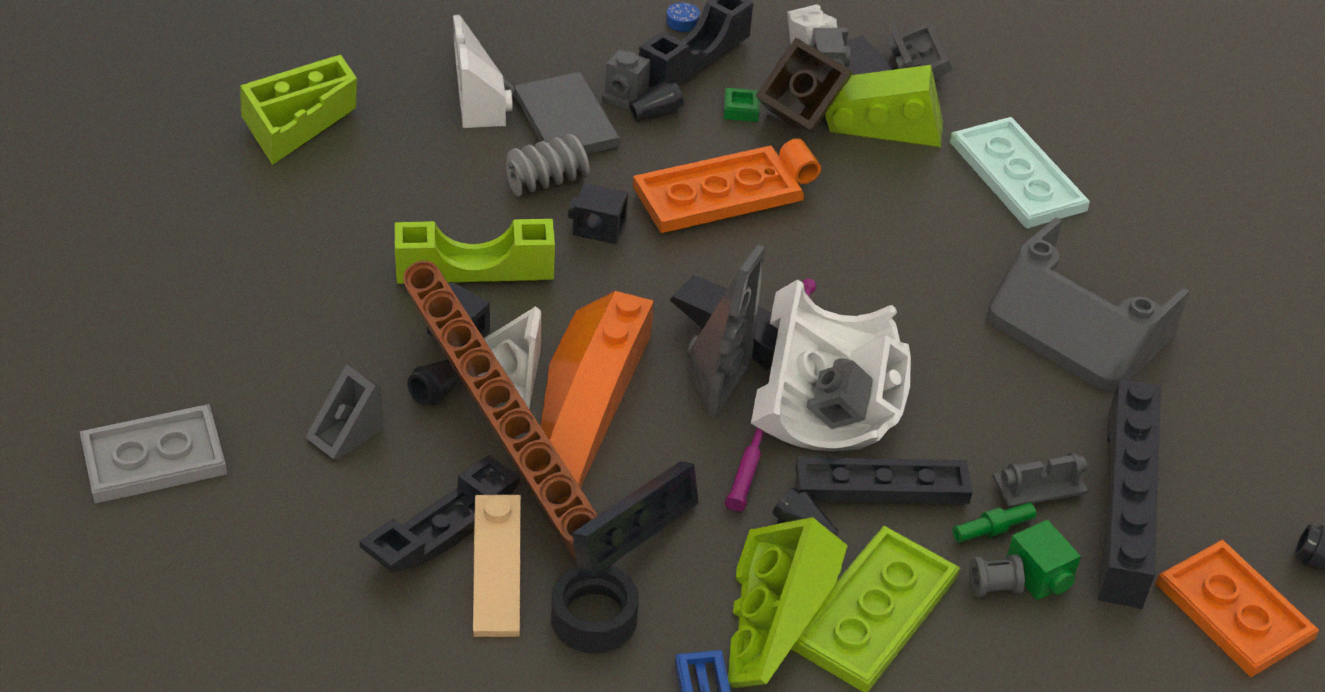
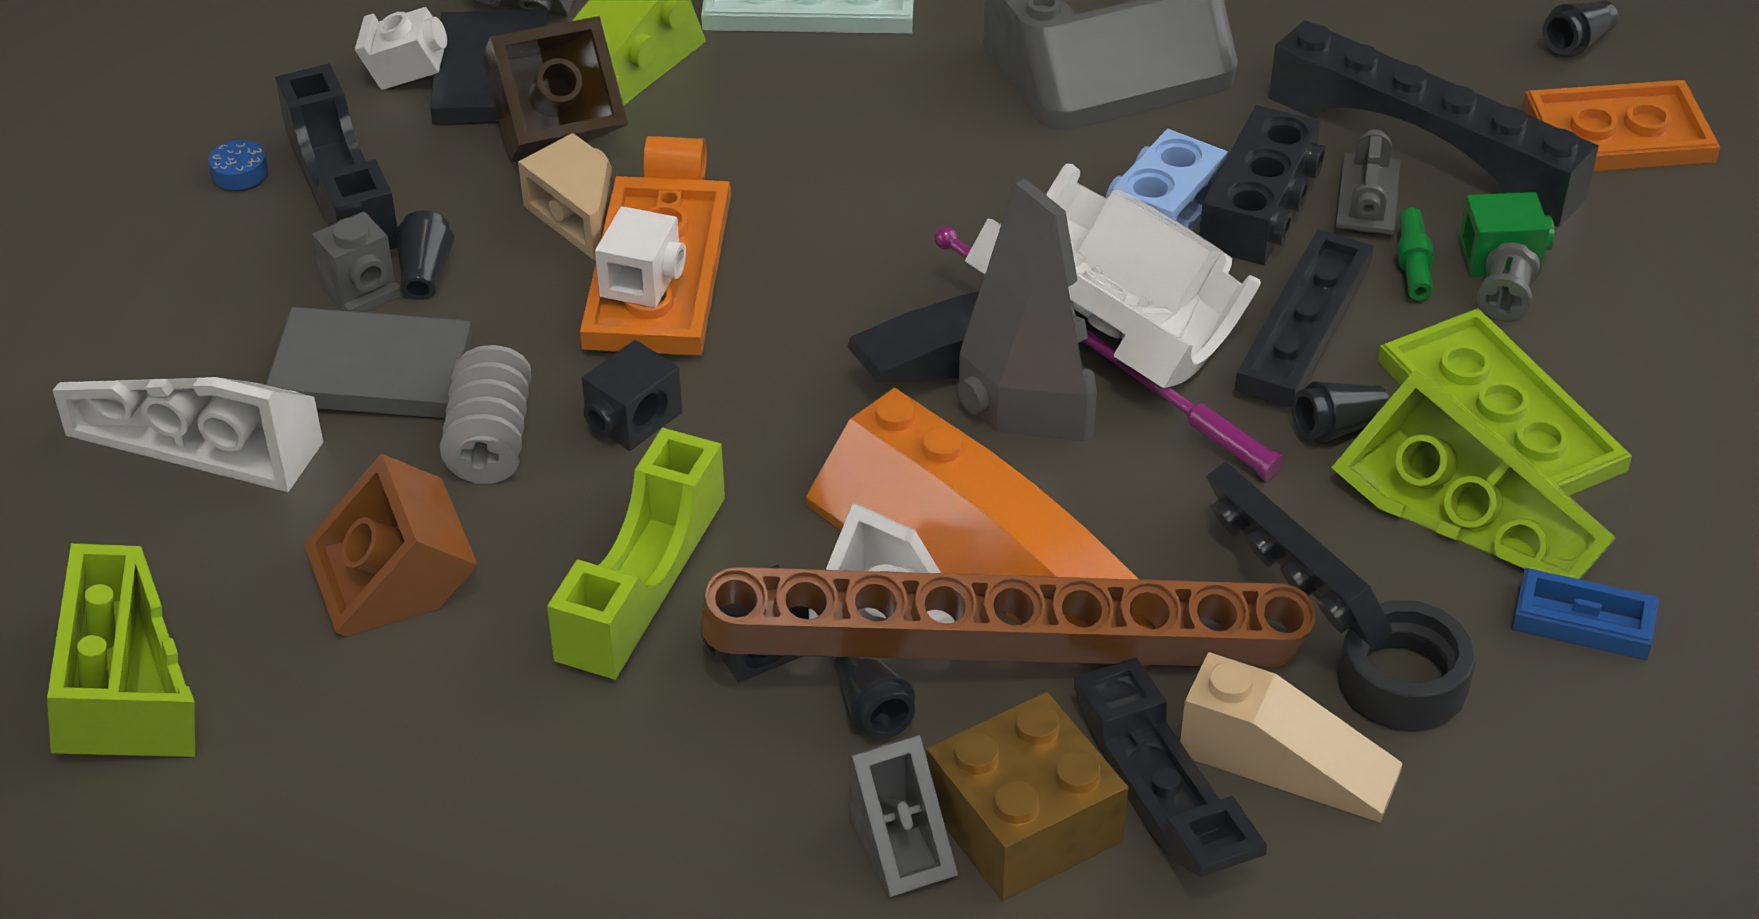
camera: 60 degrees left, 0 degrees up
(388, 460) = (1027, 795): none -> pearl gold brick
(433, 170) = (389, 549): none -> dark orange slope
(694, 169) = (639, 256): none -> white brick
(741, 105) = (483, 180): green tile -> none
(750, 129) = (569, 190): none -> tan slope
(832, 43) = (464, 40): dark grey brick -> none
(839, 387) = (1187, 291): dark grey brick -> none
(951, 380) = (1173, 176): none -> light blue brick
(994, 421) = (1262, 184): none -> black brick

